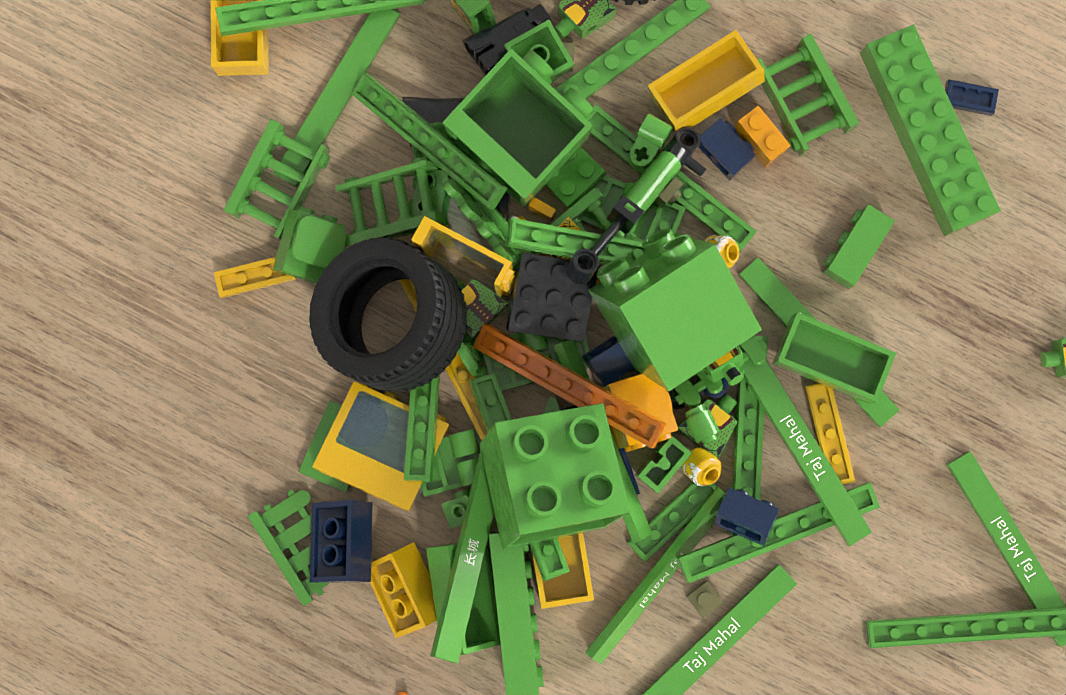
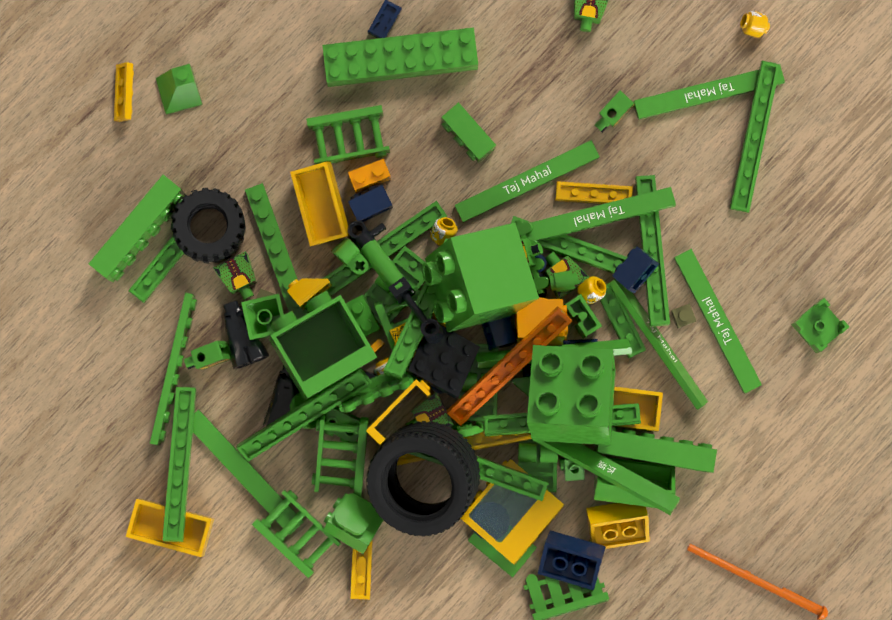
camera: 80 degrees left, 0 degrees up
(593, 92) = (307, 289): none -> yellow slope
(670, 193) = (393, 253): olive plate -> none
(834, 358) = (543, 175): bright green piece -> none
(960, 431) = (620, 104): none -> bright green torso

